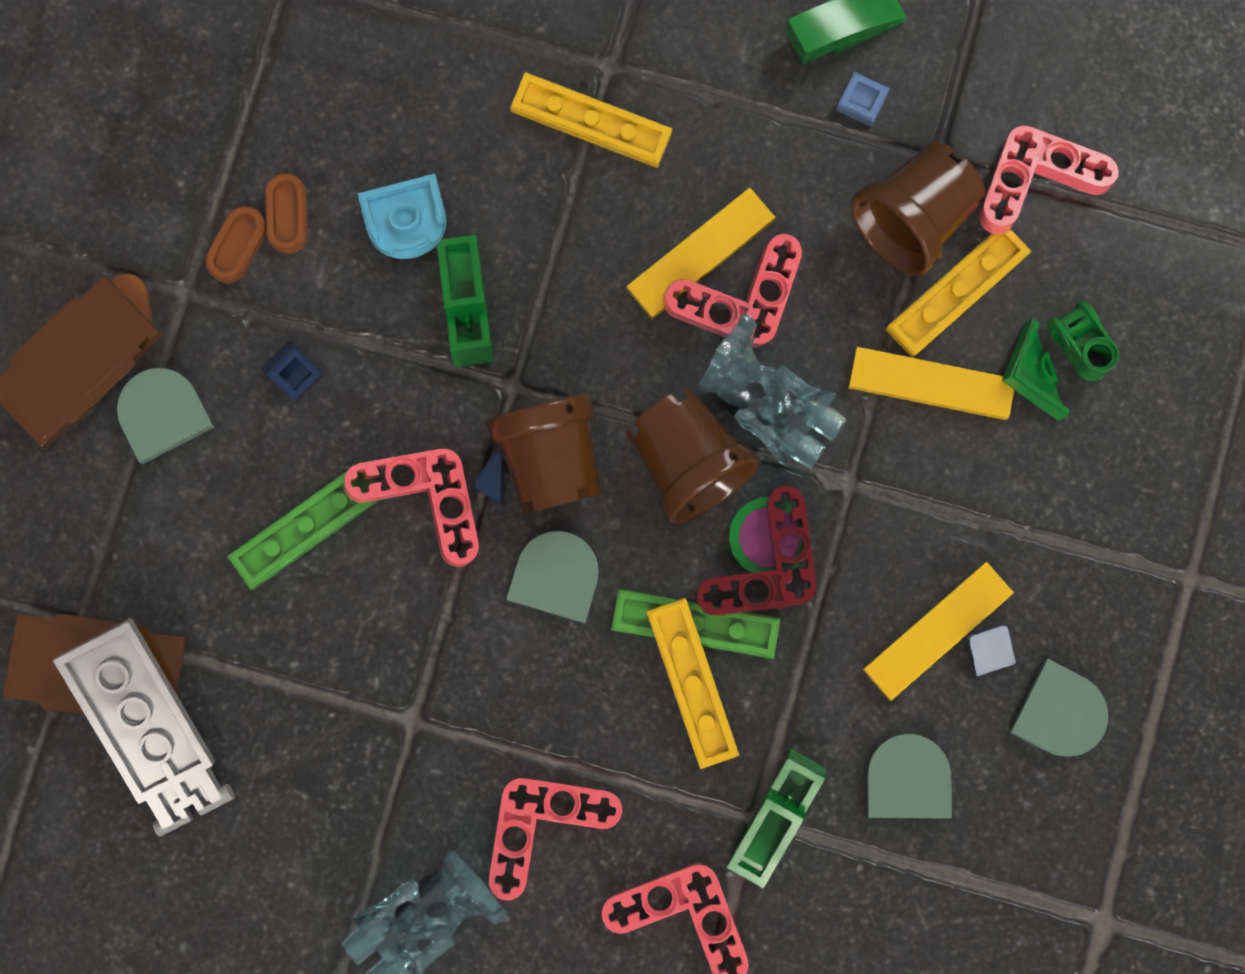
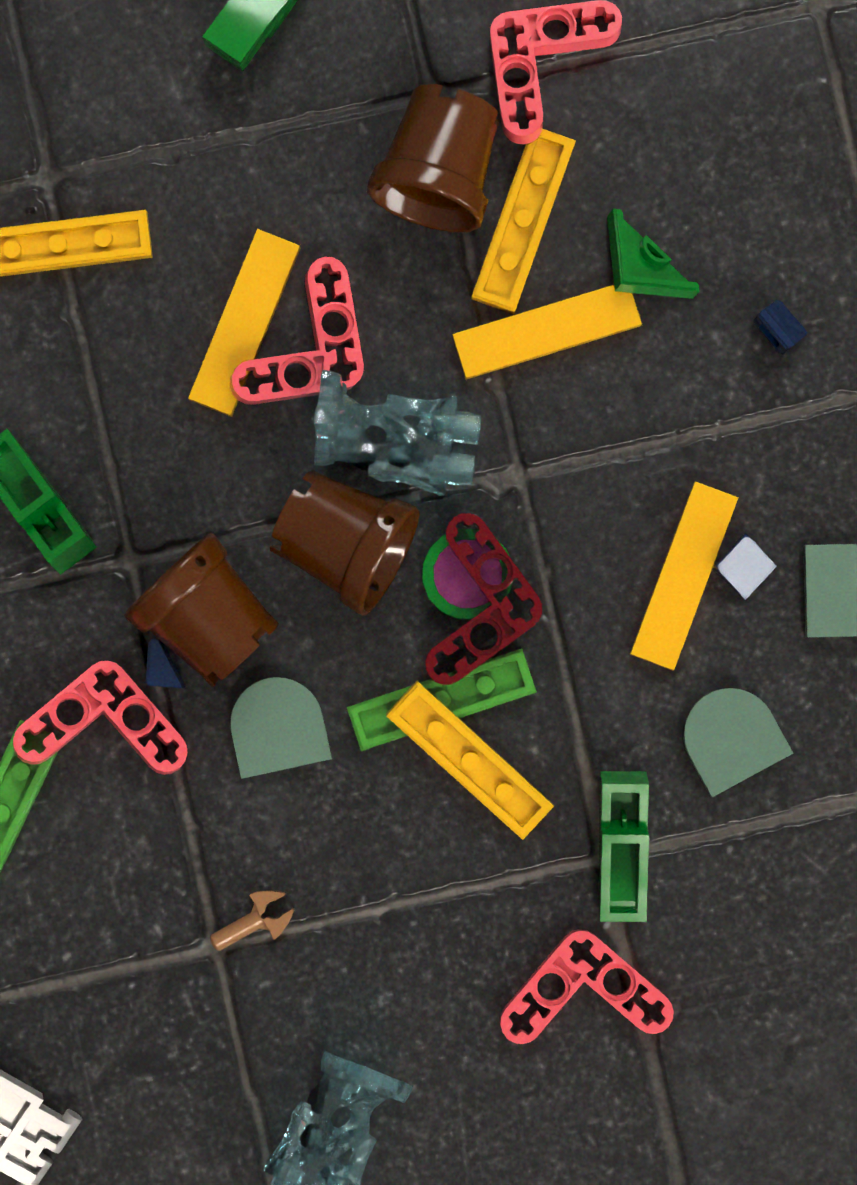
camera: 25 degrees left, 5 degrees up
(454, 716) = (253, 921): none -> medium nougat bar
(527, 819) = (380, 982): coral beam -> none
(862, 99) = (322, 73): medium blue tile -> none
(1084, 338) = (673, 203): green piece -> none
(1115, 478) = (779, 326): none -> dark blue slope

